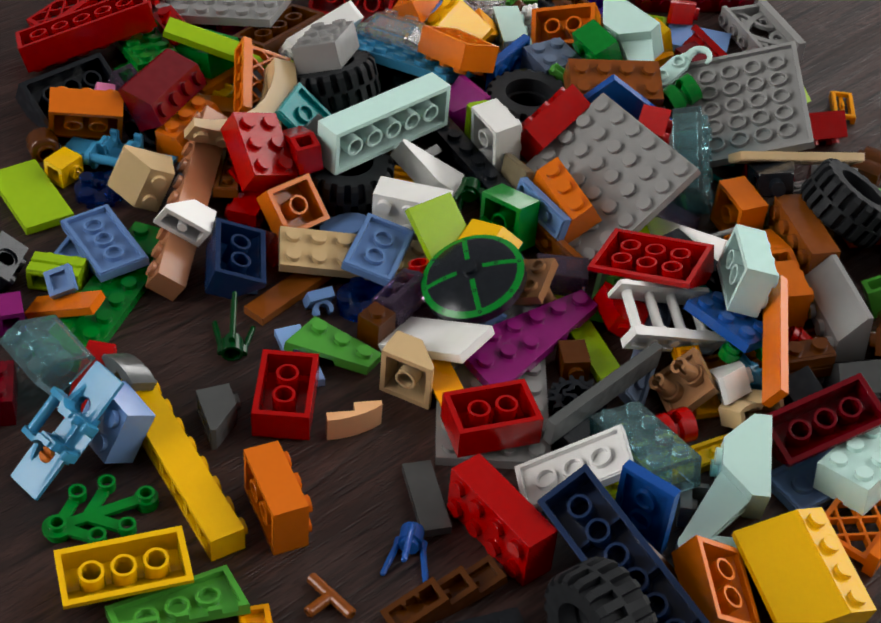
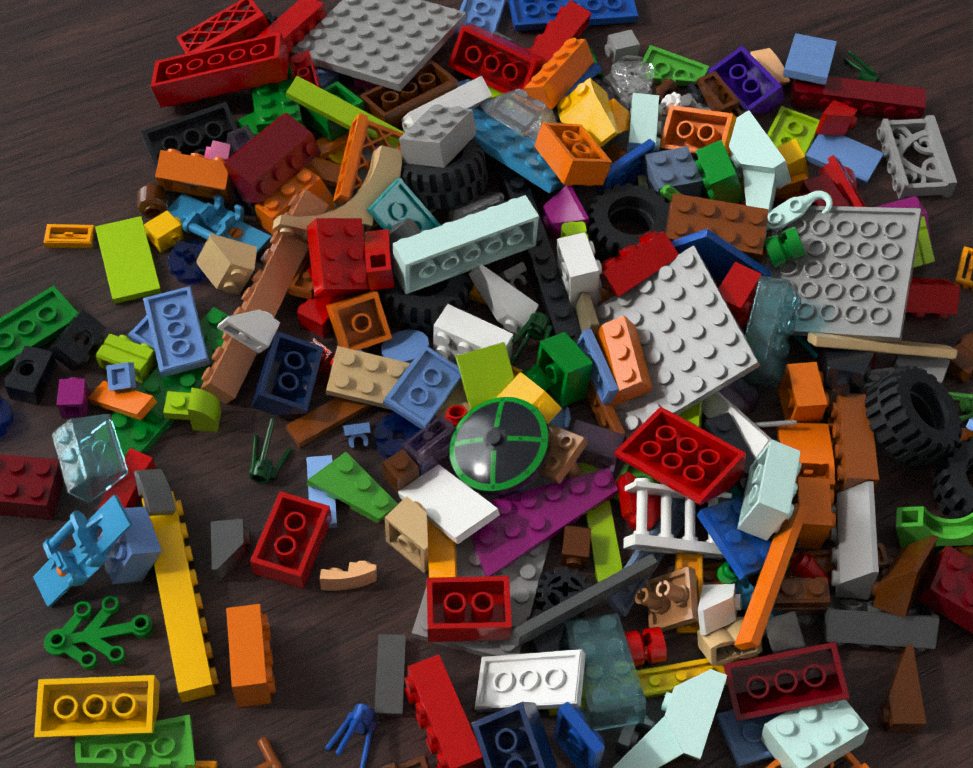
camera: 15 degrees right, 15 degrees up
(149, 298) = (198, 406): none -> lime brick

